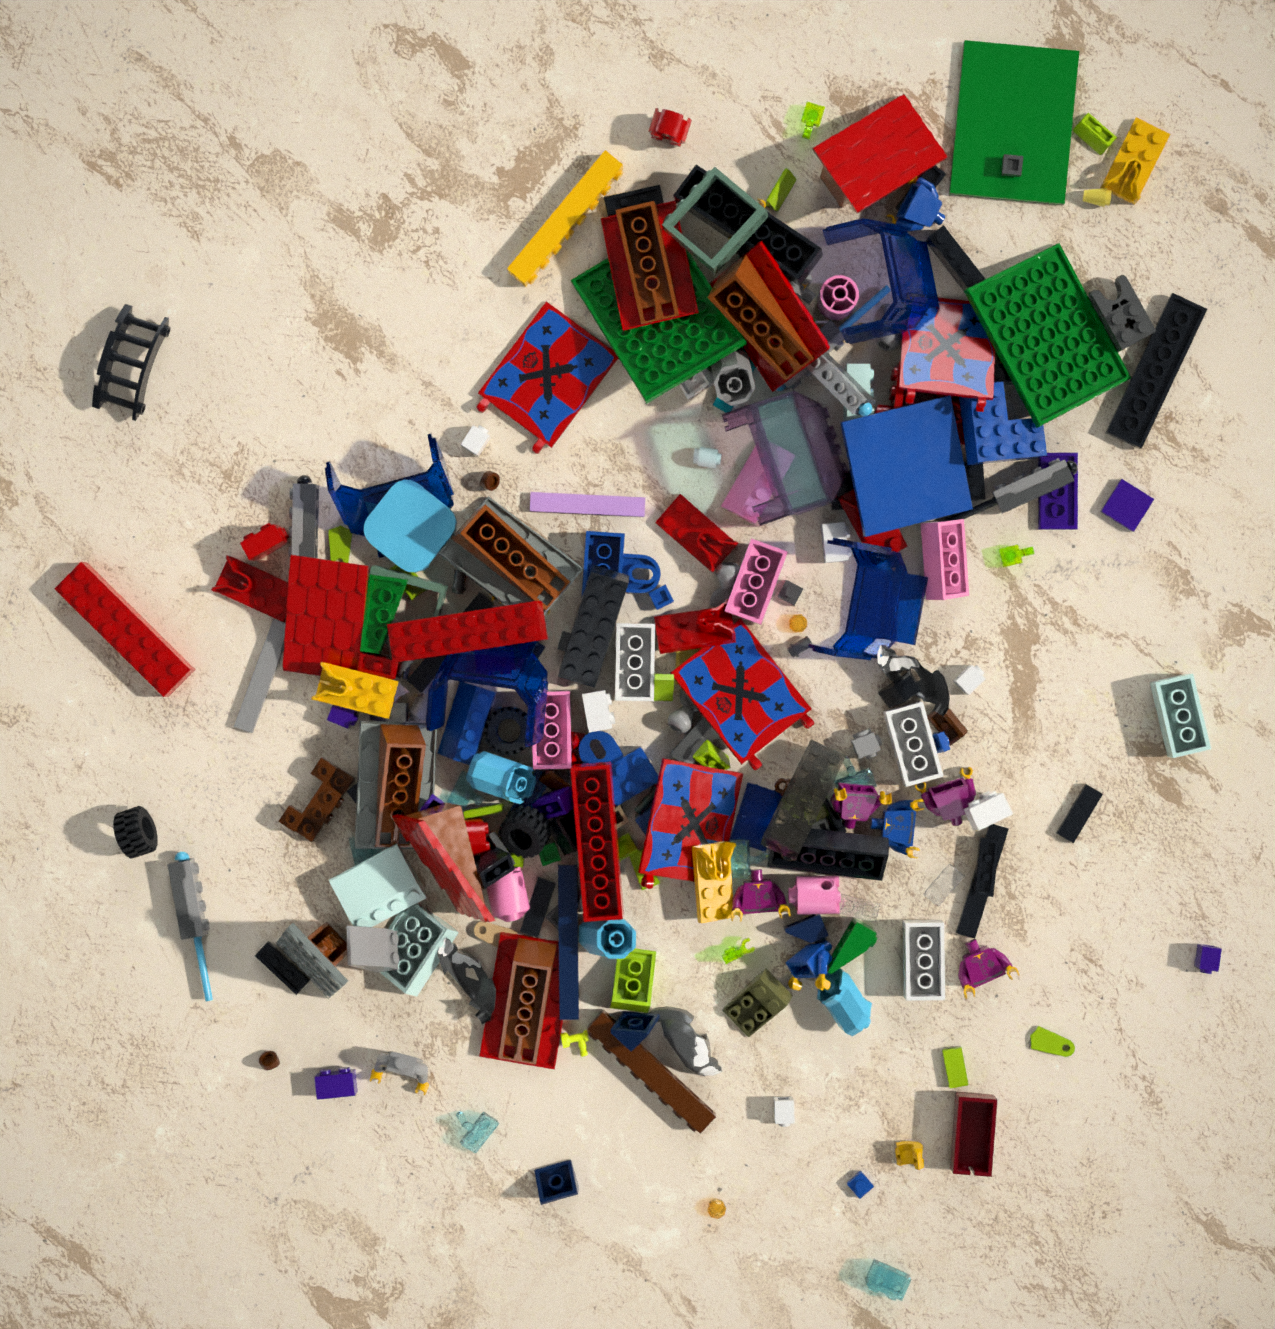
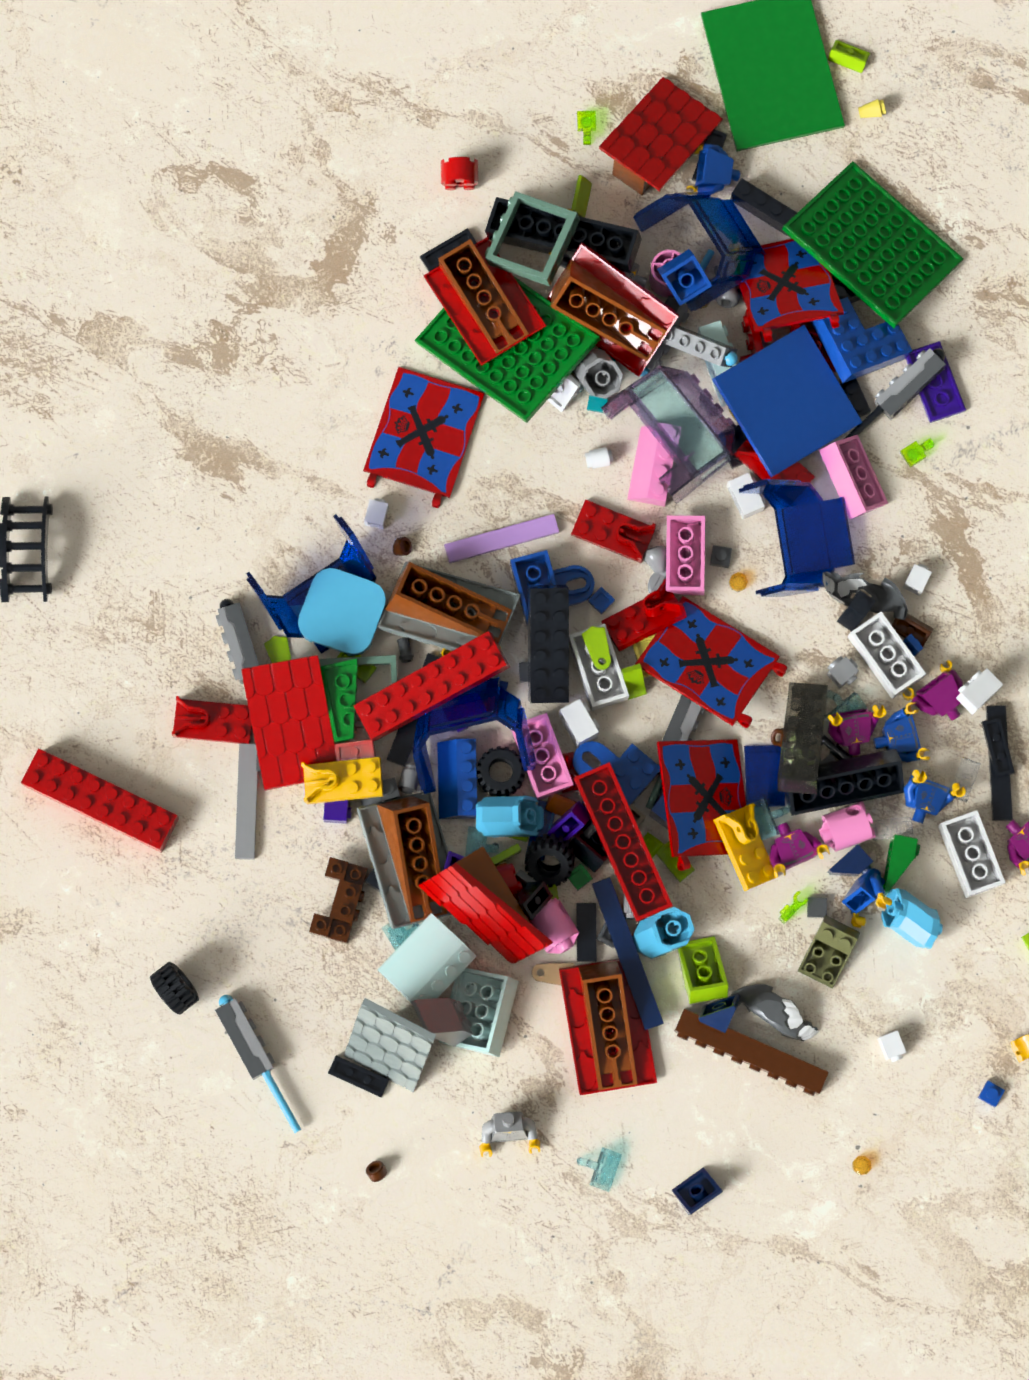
camera: 25 degrees left, 10 degrees down
(264, 542) = (209, 671): red brick -> none
(335, 1083) = (449, 1170): dark purple brick -> none
(404, 666) = (380, 748): dark grey pin -> none
(480, 991) = (527, 1009): dark grey animal -> none
(565, 218) = (390, 286): yellow brick -> none
(581, 1038) = (670, 1044): neon yellow piece -> none
(639, 644) = (597, 646): none -> lime piece
(682, 718) = (661, 706): light grey piece -> none
(712, 756) = (701, 730): lime slope -> none
(761, 957) = (816, 907): none -> dark grey tile
(799, 647) = (747, 603): dark grey pin -> none
(849, 311) = (684, 277): none -> blue slope
(903, 892) = (928, 796): none -> blue torso
(1012, 165) = (784, 106): dark grey plate -> none
(1123, 310) = (931, 202): dark grey brick -> none
(1127, 505) = (1003, 373): dark purple tile -> none
(1135, 160) = (894, 67): yellow plate -> none
(1156, 371) = (984, 245): black plate -> none

